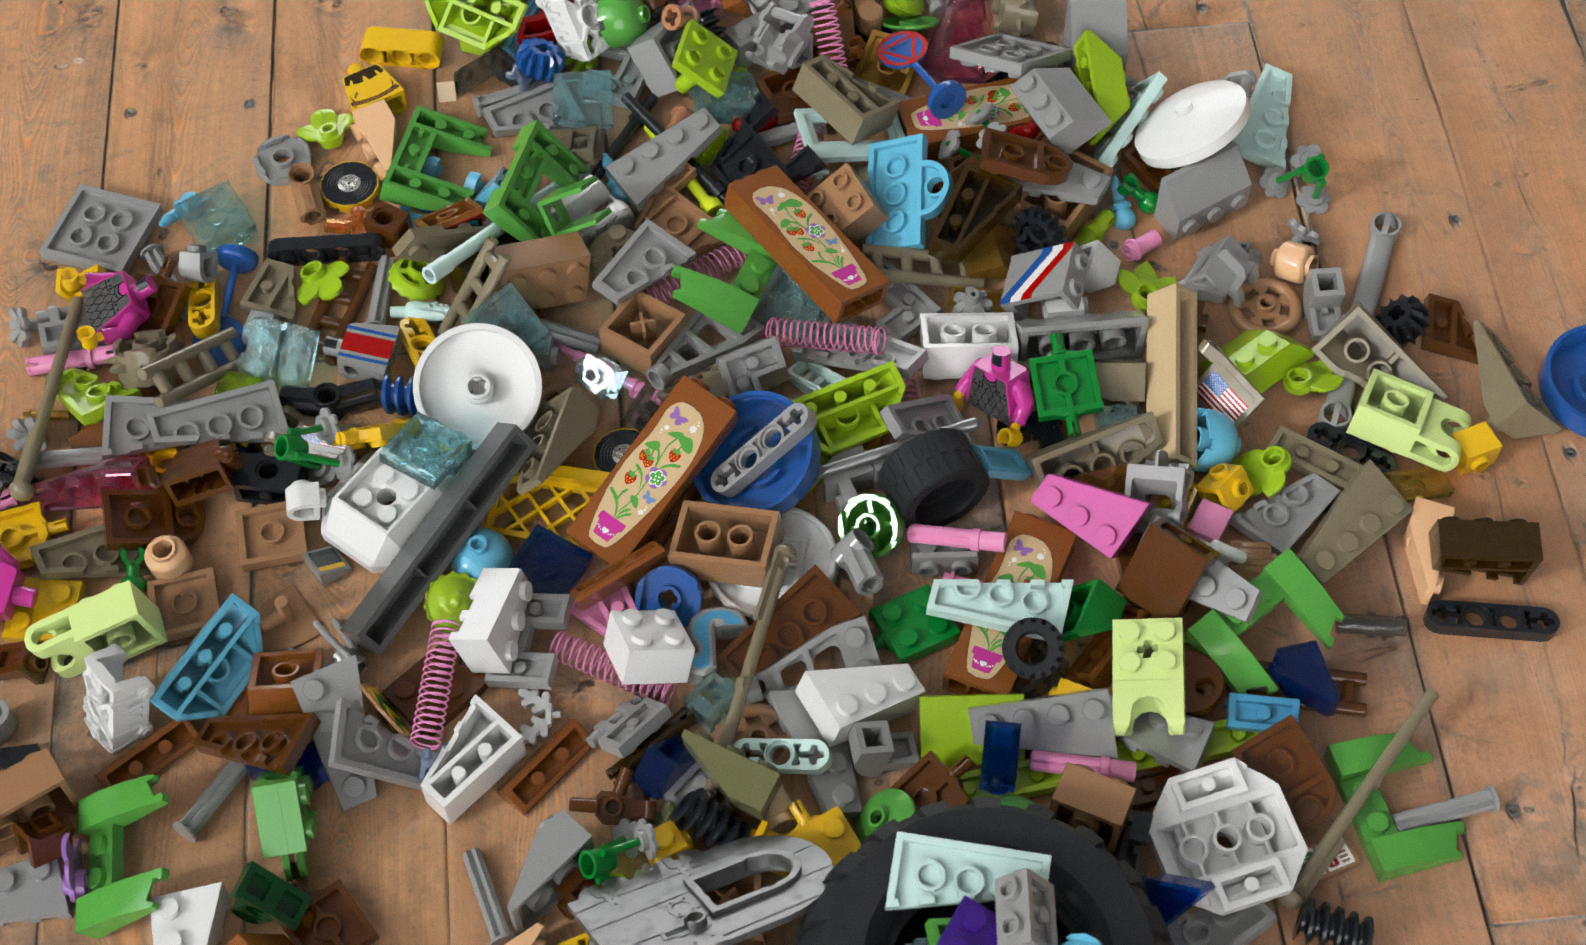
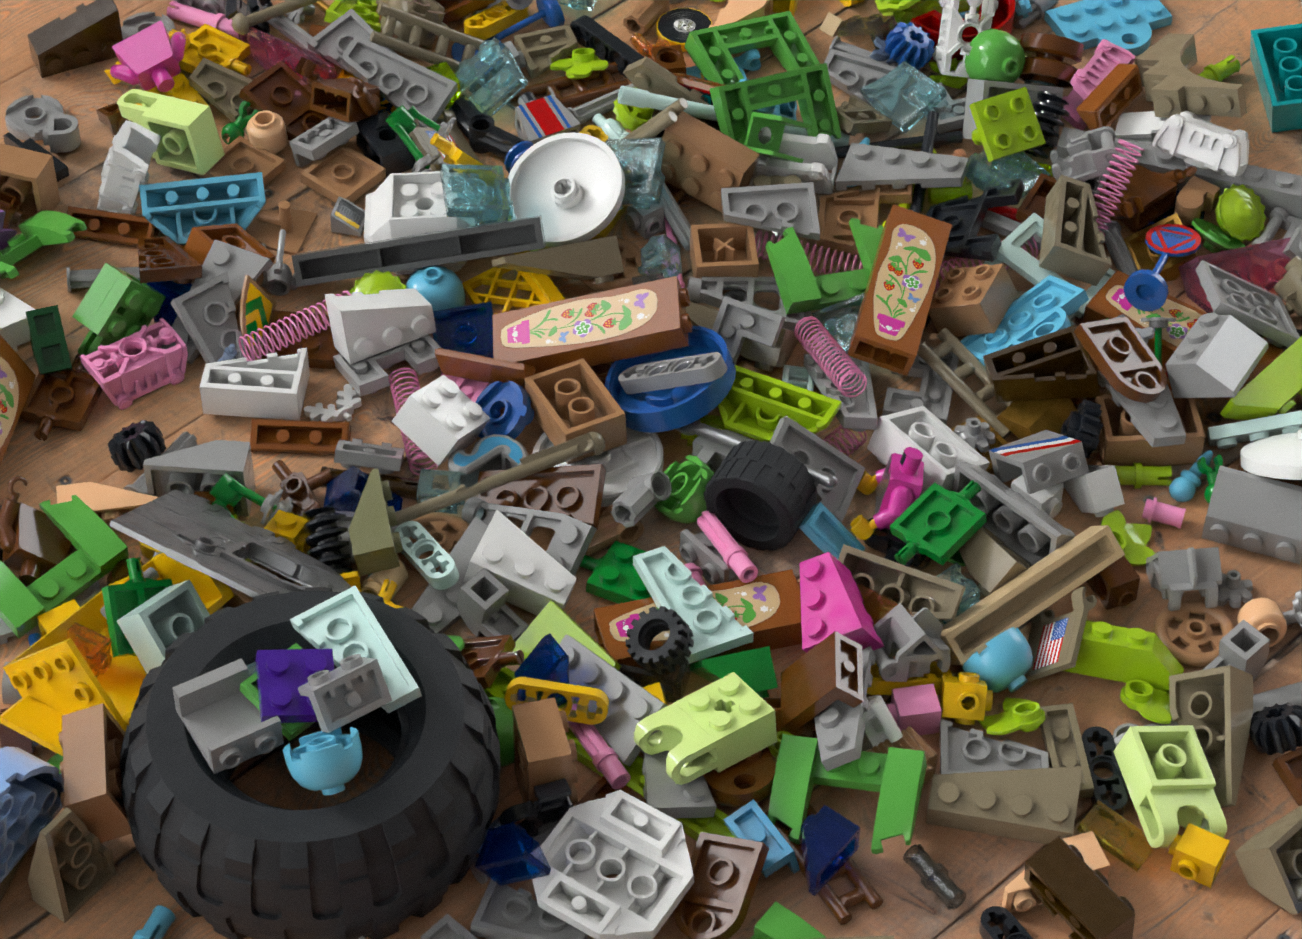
camera: 50 degrees right, 10 degrees down
(222, 522) = (321, 139): none -> light grey bracket
(304, 500) = (378, 165): white plate -> none
(365, 843) = (139, 362): none -> bright pink piece
(452, 903) = (136, 444): none -> black gear
(679, 14) = (1021, 78): nougat bush -> none
(1023, 778) = (569, 691): none -> yellow beam

